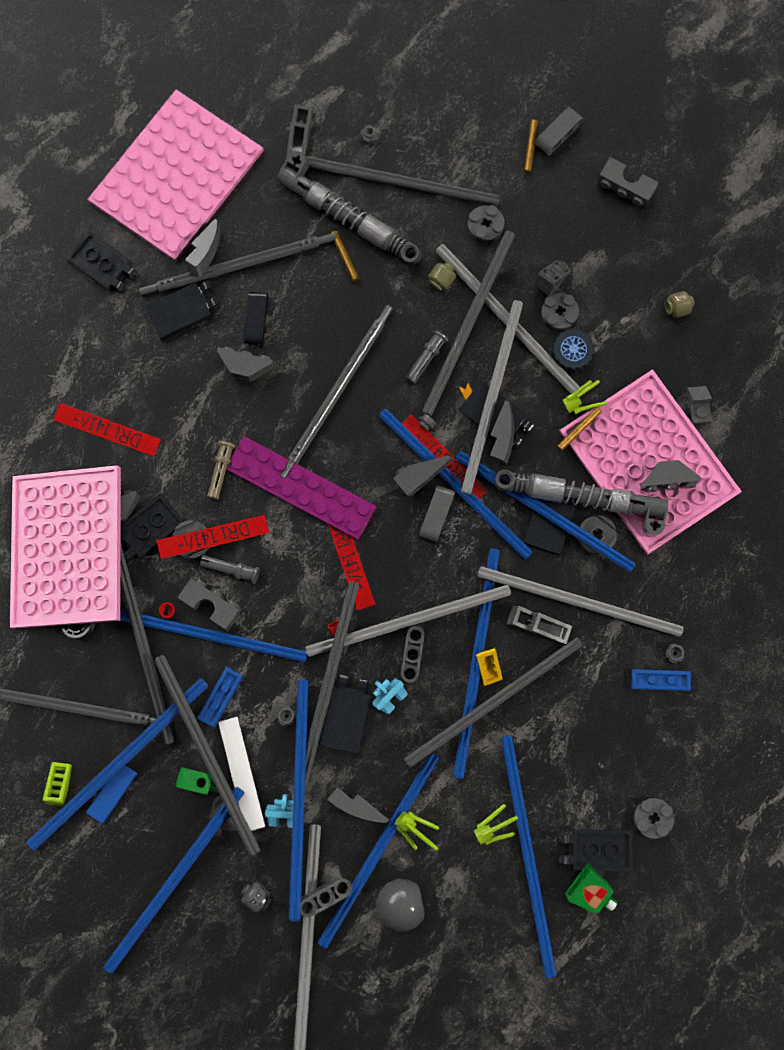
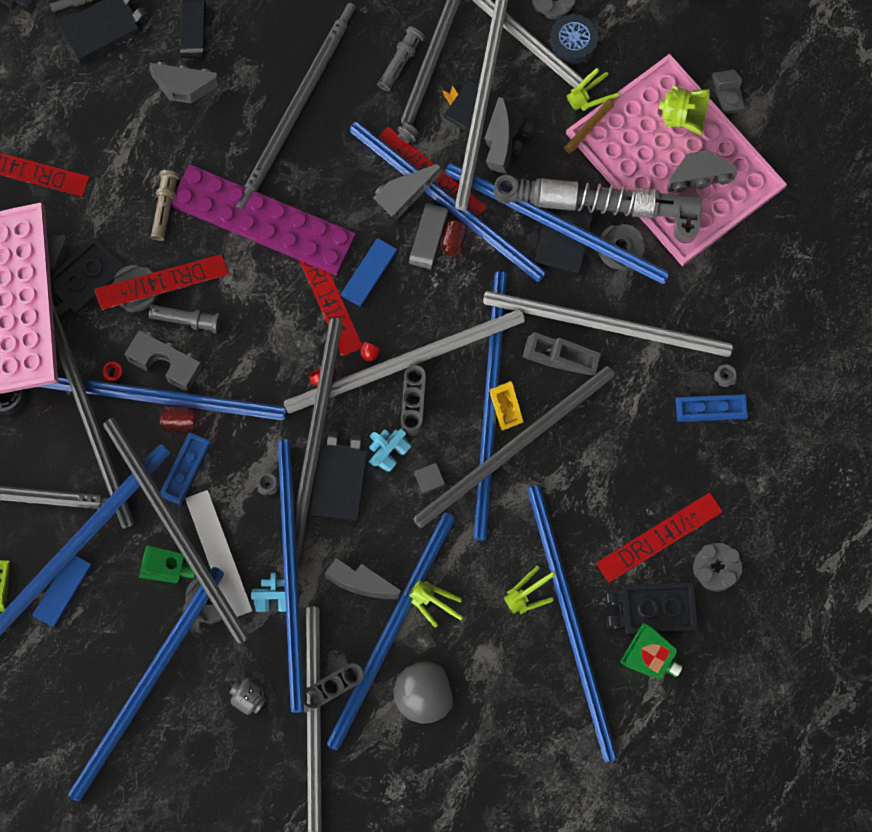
camera: 10 degrees left, 5 degrees down
(216, 655) = (177, 419): none -> clear red brick
(379, 609) = (369, 352): none -> red hinge
(385, 540) = (369, 272): none -> blue tile
(420, 722) = (429, 478): none -> dark grey tile
(457, 517) = (452, 238): none -> clear red brick
(607, 788) = (659, 537): none -> red sticker
(661, 421) = (685, 109): none -> lime hat

